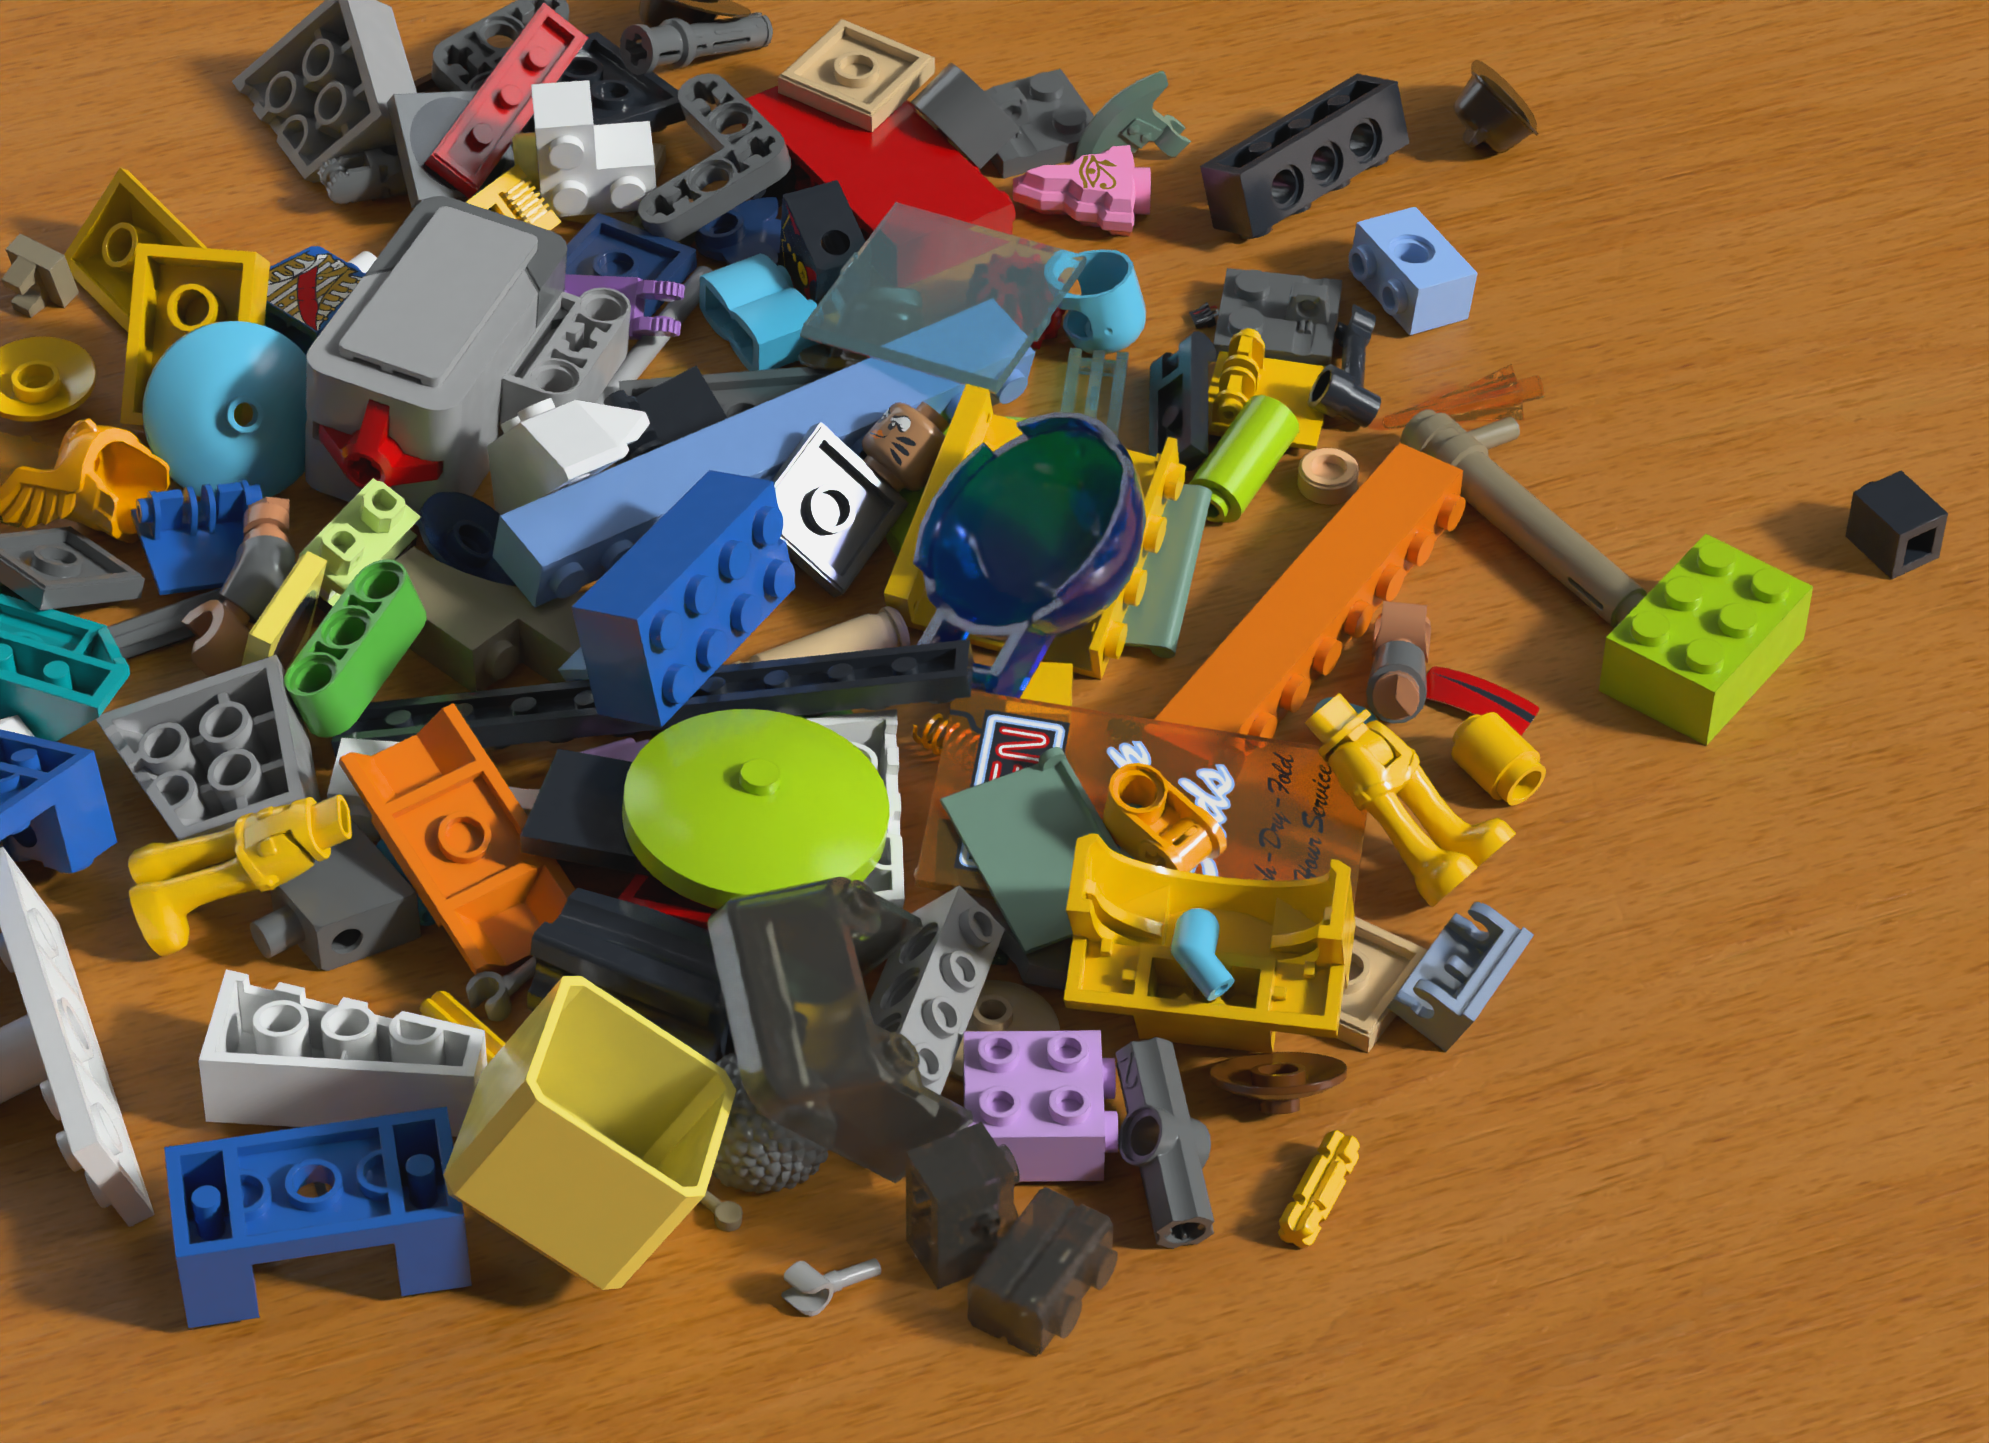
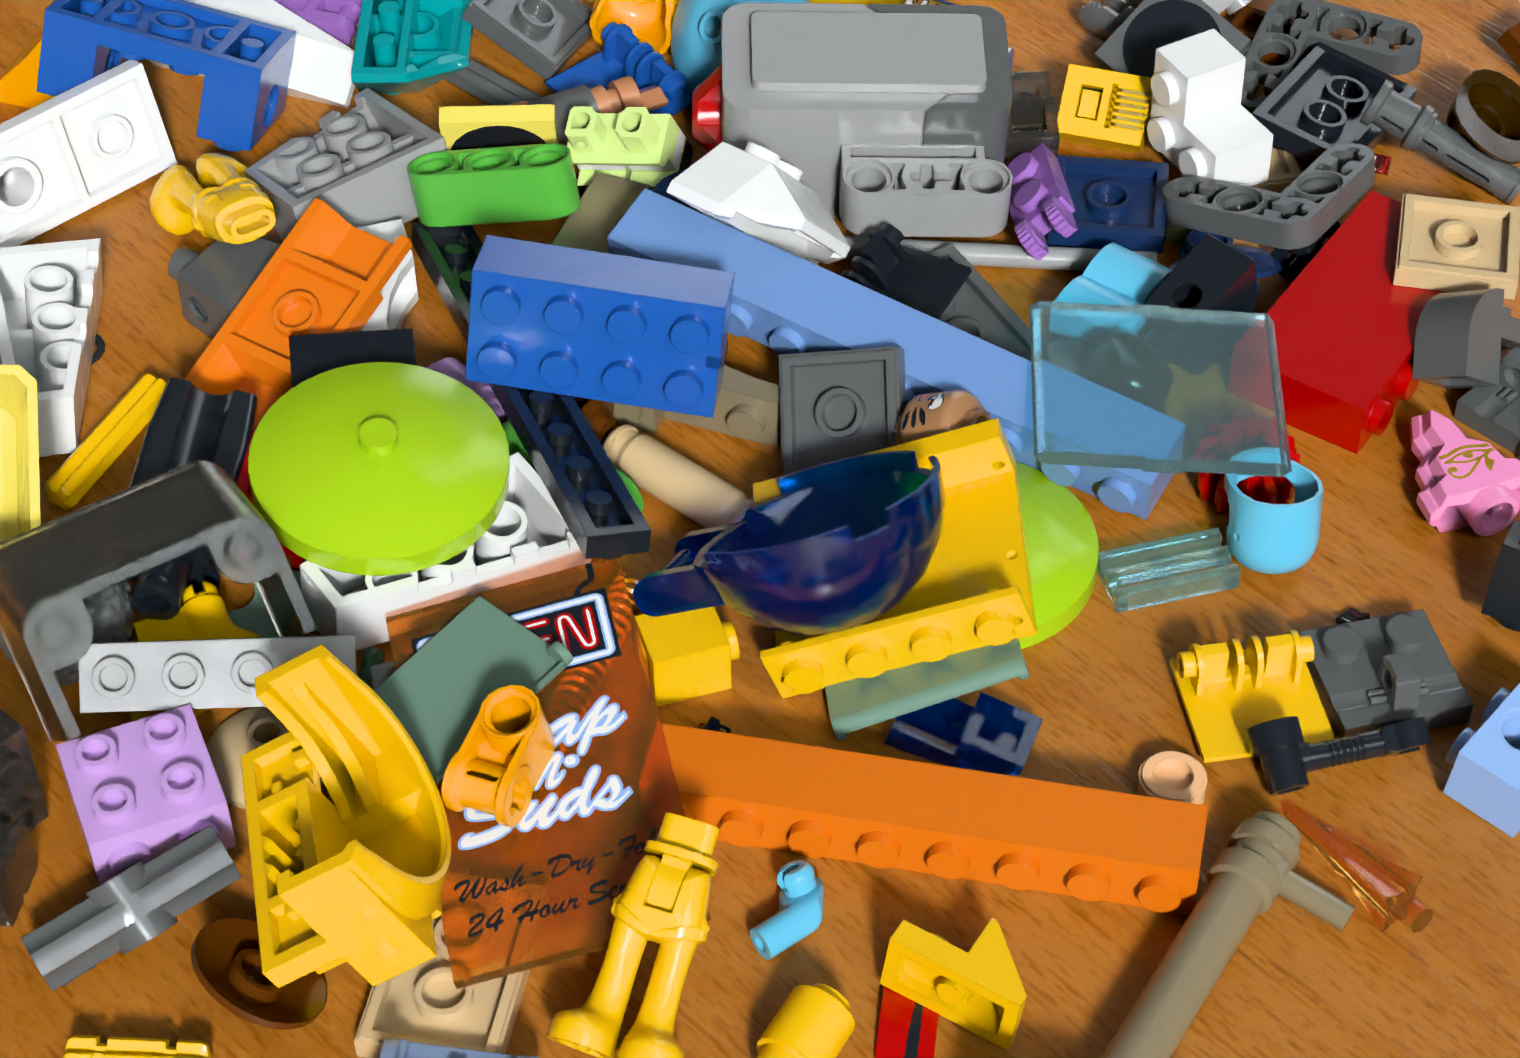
camera: 70 degrees right, 0 degrees up
(505, 101) = (1269, 44): tile -> none
(1181, 399) = (1128, 646): black plate -> none
(1195, 948) = (303, 812): medium azure arm -> none
(1225, 567) = (979, 738): none -> clear blue slope
(1246, 456) = (1121, 697): lime brick -> none
(1400, 655) = (864, 919): nougat piece -> none
(1487, 644) = (968, 988): none -> yellow slope

